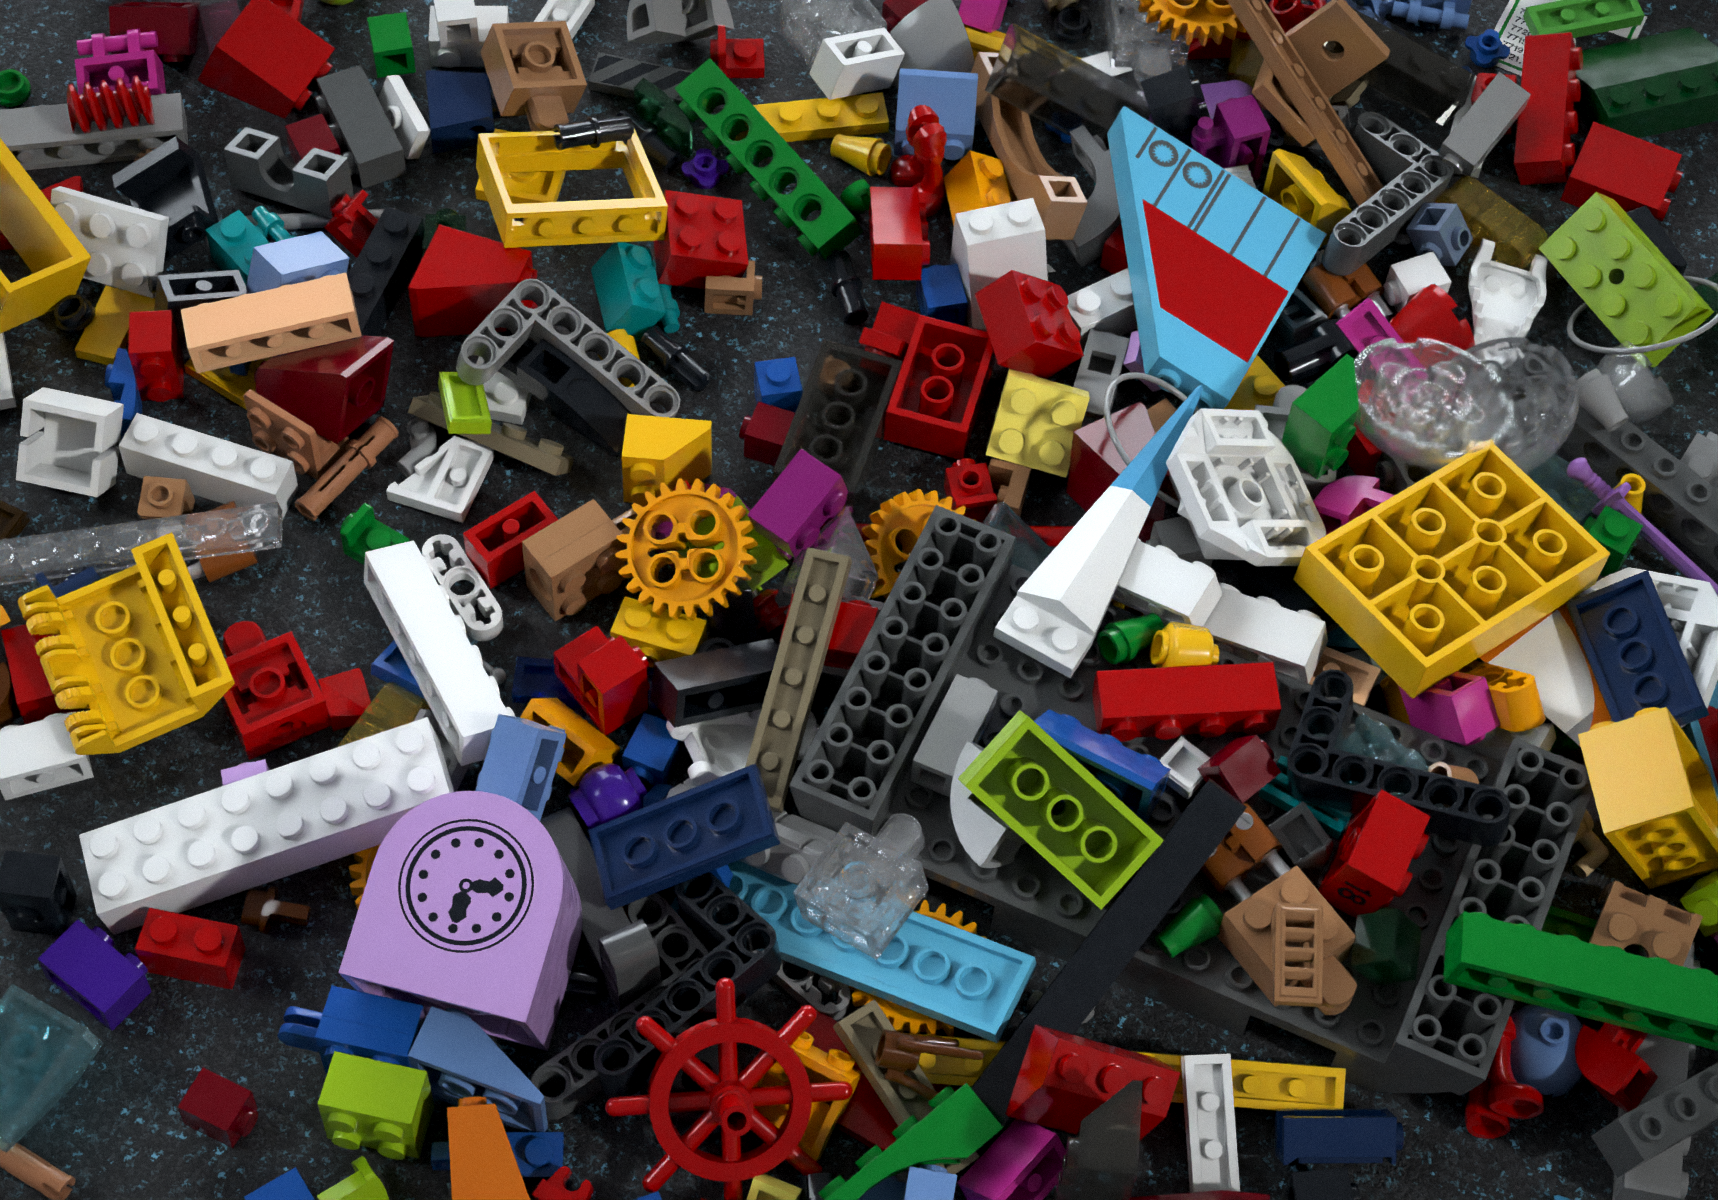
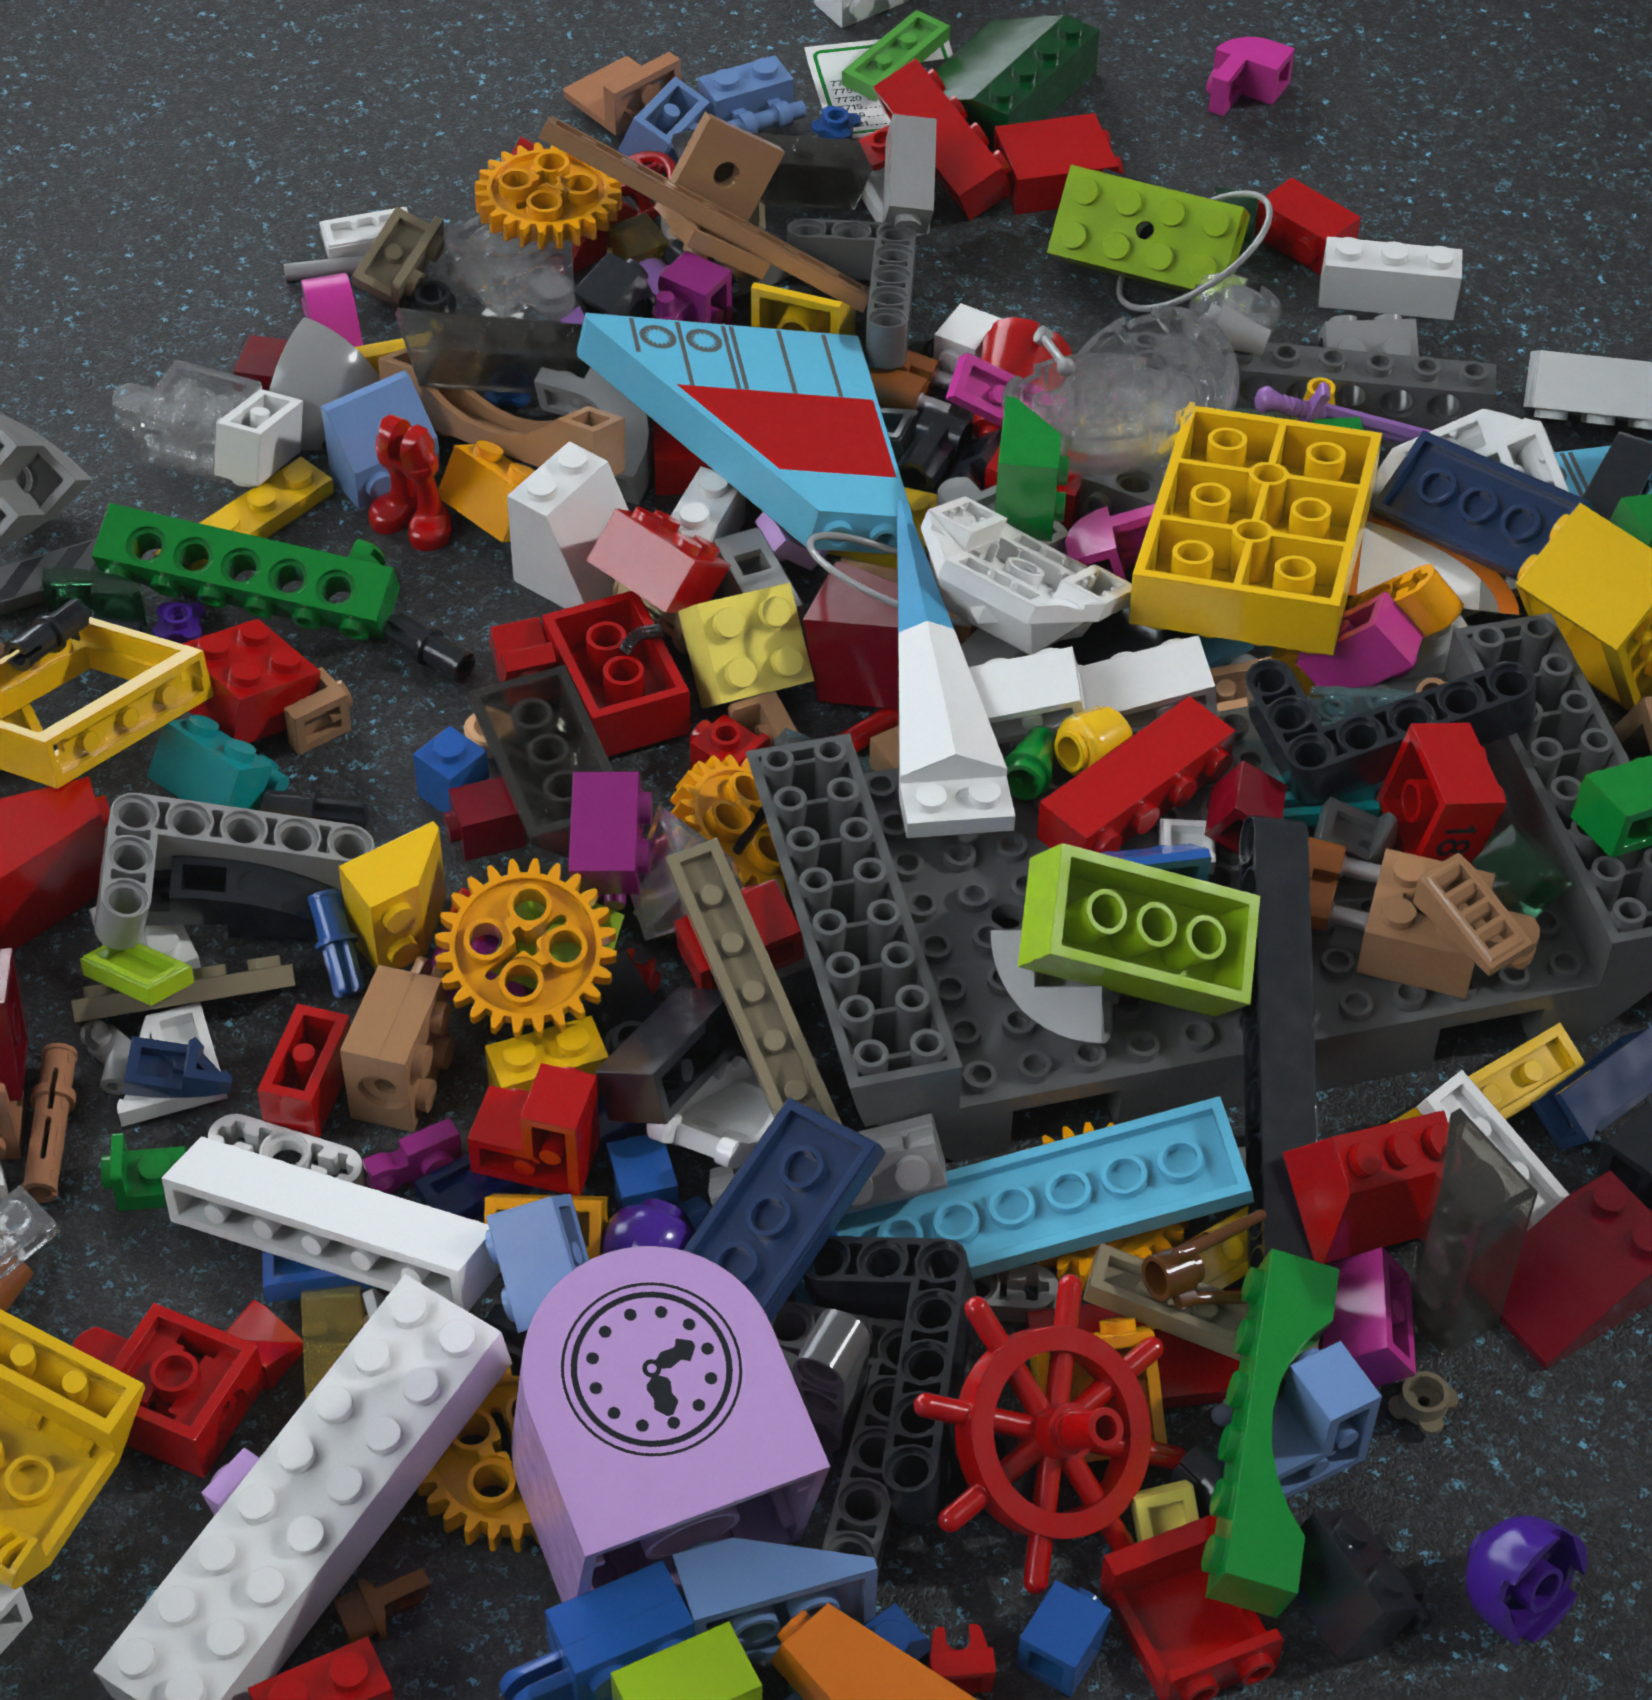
camera: 35 degrees left, 10 degrees down
(434, 483) = (172, 1070): none -> dark blue slope
(530, 641) = (416, 1157): none -> magenta plate
(605, 461) = (336, 942): none -> blue axle
(738, 56) = (124, 492): red bracket -> none
(856, 868) = (1000, 1138): clear brick -> none
(863, 153) = (331, 519): yellow cone -> none
(897, 233) = (445, 562): red brick -> none
(942, 294) = (532, 592): blue brick -> none
(959, 719) = (956, 948): light grey brick -> none
(966, 372) = (641, 636): none -> black leg
(1192, 925) = (1335, 969): green cone -> none
(1433, 353) = (1043, 337): none -> light grey hinge
(1440, 230) = (947, 282): sand blue brick -> none
(1496, 220) = (981, 260): clear yellow beam -> none
(1504, 296) = (1056, 303): white animal -> none

